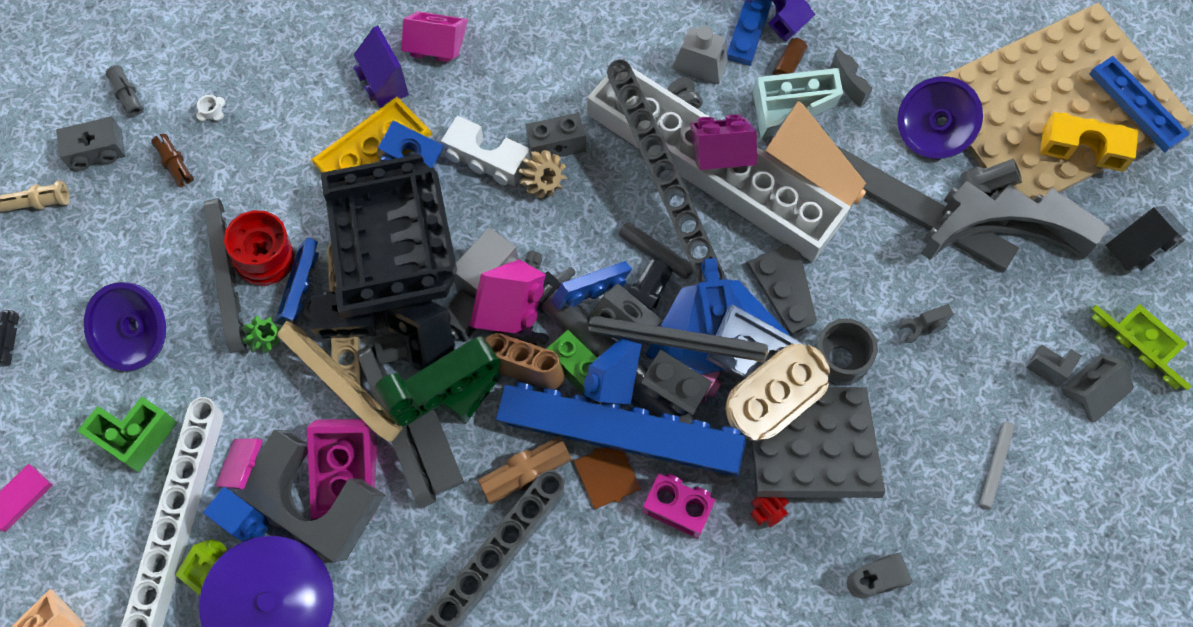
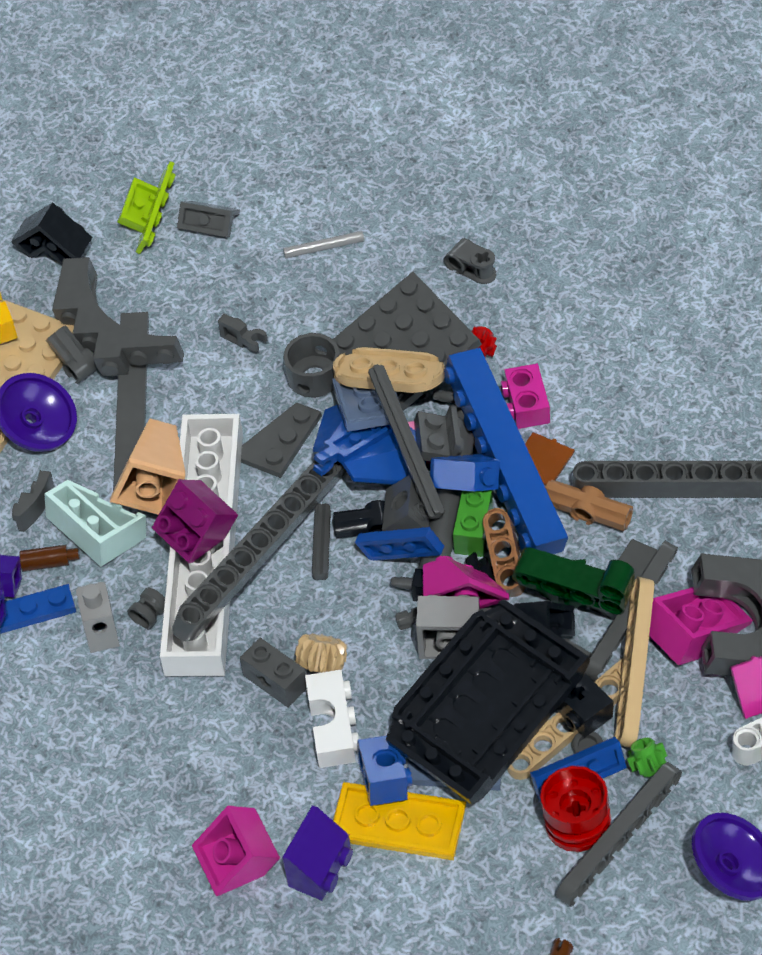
camera: 120 degrees left, 15 degrees down
(1053, 366) = (211, 246): dark grey panel -> none

